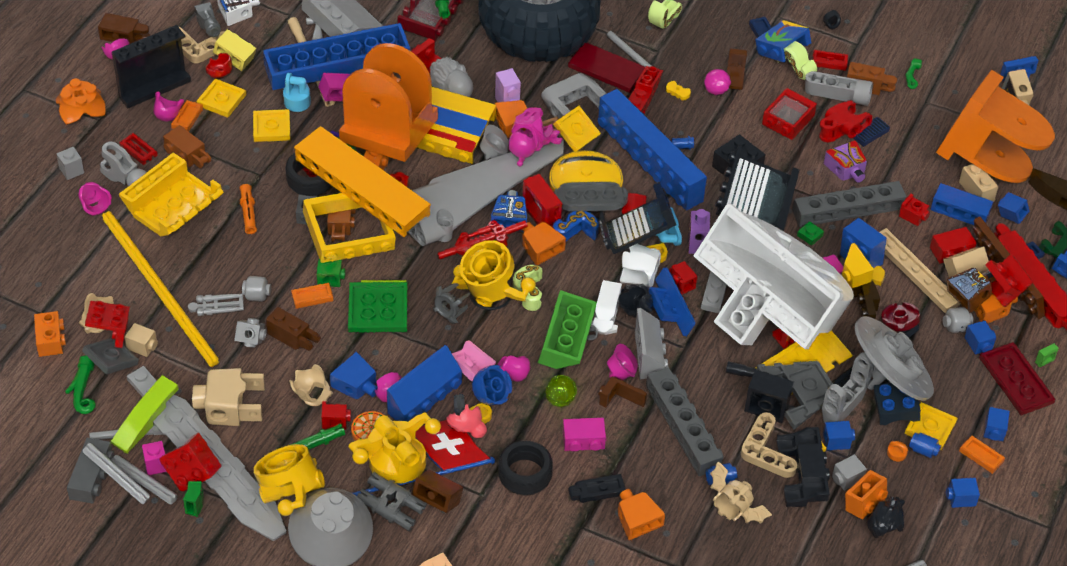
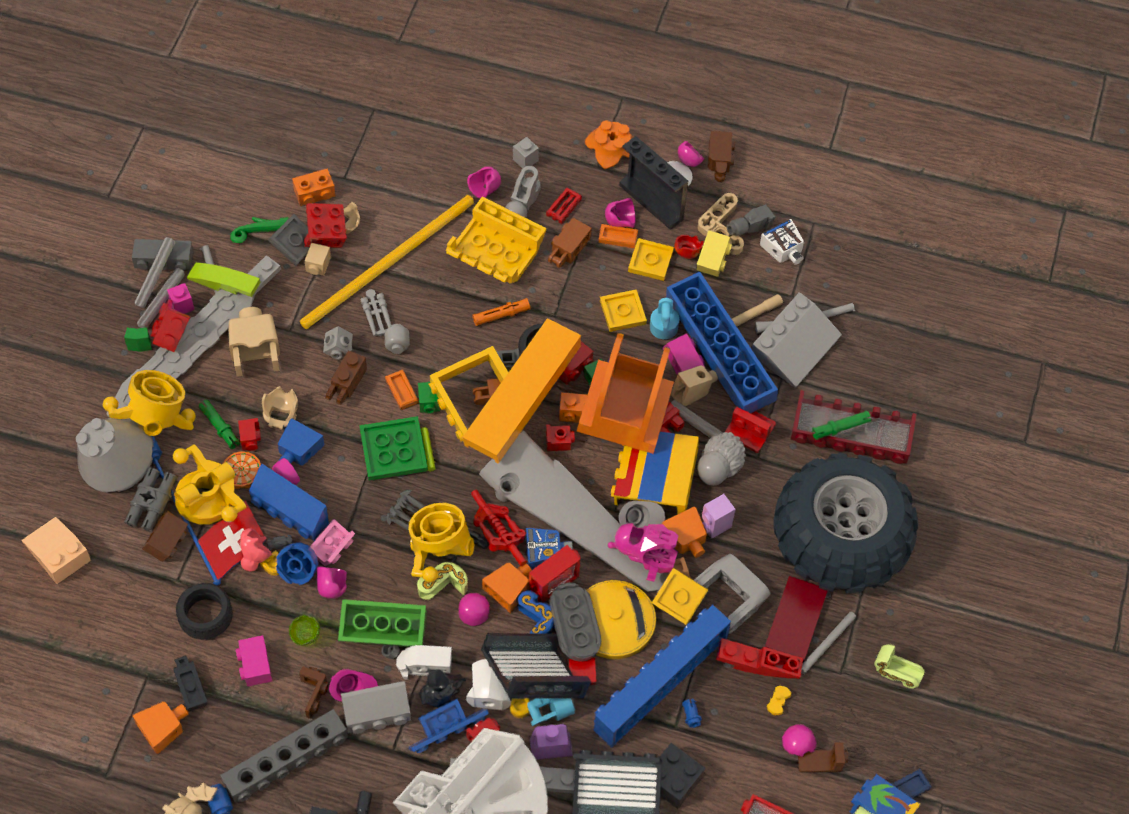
camera: 80 degrees right, 10 degrees up
(558, 270) = (473, 609): none -> dark pink hair

